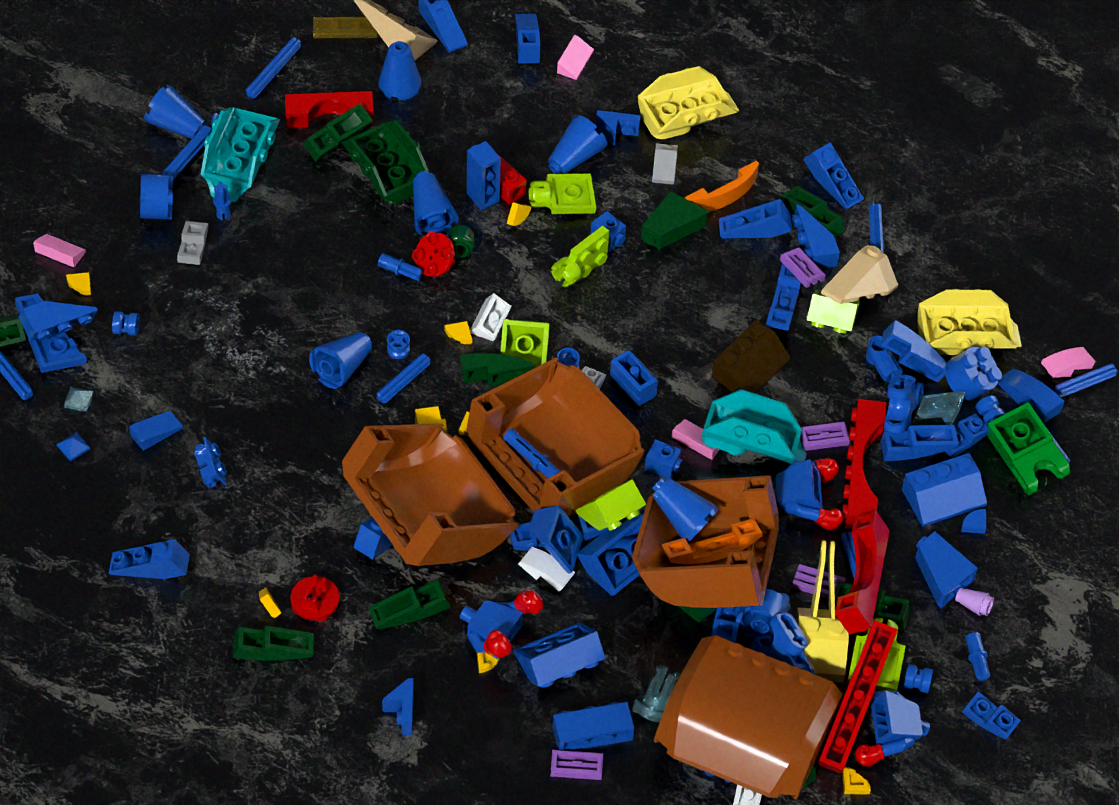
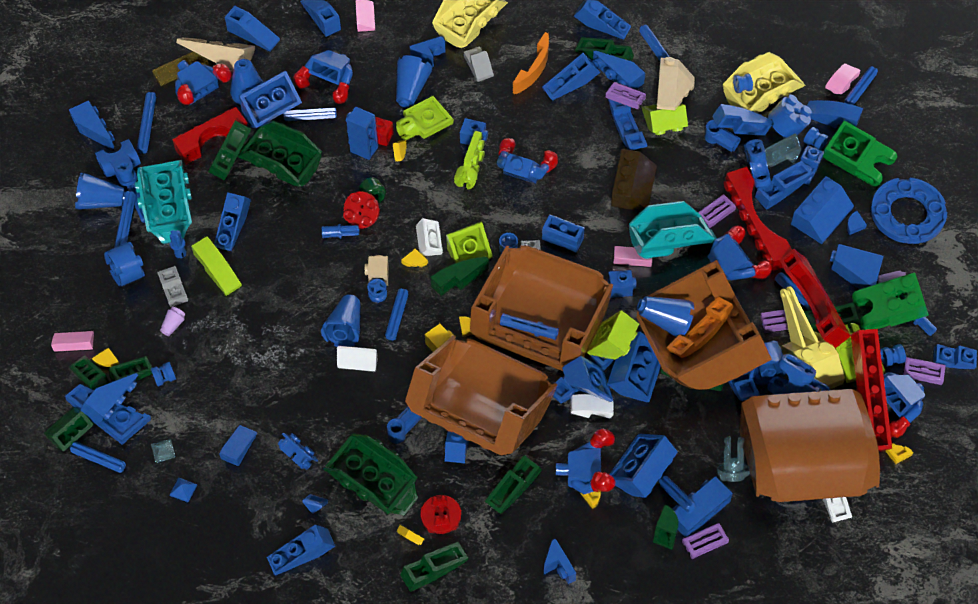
camera: 25 degrees left, 5 degrees up
(55, 290) = (85, 375): none -> dark green slope
(88, 299) = (128, 367): none -> dark green slope
(170, 275) = (172, 320): none -> lavender cone
(193, 523) = (314, 503): none -> blue slope
(214, 43) = (88, 123): none -> blue slope
(218, 94) = (120, 163): none -> blue piece
(248, 242) = (216, 266): none -> lime slope
(269, 524) = (374, 474): none -> dark green slope
(294, 205) = (231, 221): none -> blue slope
(327, 491) = (403, 423): none -> blue piece
(331, 402) = (356, 358): none -> white slope
(350, 48) = (198, 80): none -> blue torso
(410, 98) = (269, 100): none -> blue slope
(414, 322) = (377, 268): none -> tan brick
(431, 205) = (336, 173): blue cone -> none
(447, 134) = (308, 114): none -> axle
(497, 94) = (328, 66): none -> blue torso
(536, 727) = (666, 528): none -> dark green brick
(573, 699) = (677, 494): none -> blue axle
(637, 292) = (522, 167): none -> blue torso
(673, 221) = (513, 103): dark green slope -> none
(939, 311) = (742, 83): none -> blue wheel
(942, 716) = (924, 374): none -> medium lavender tile
(953, 622) = (892, 302): none -> green brick
(1047, 507) = (916, 189): none -> blue plate

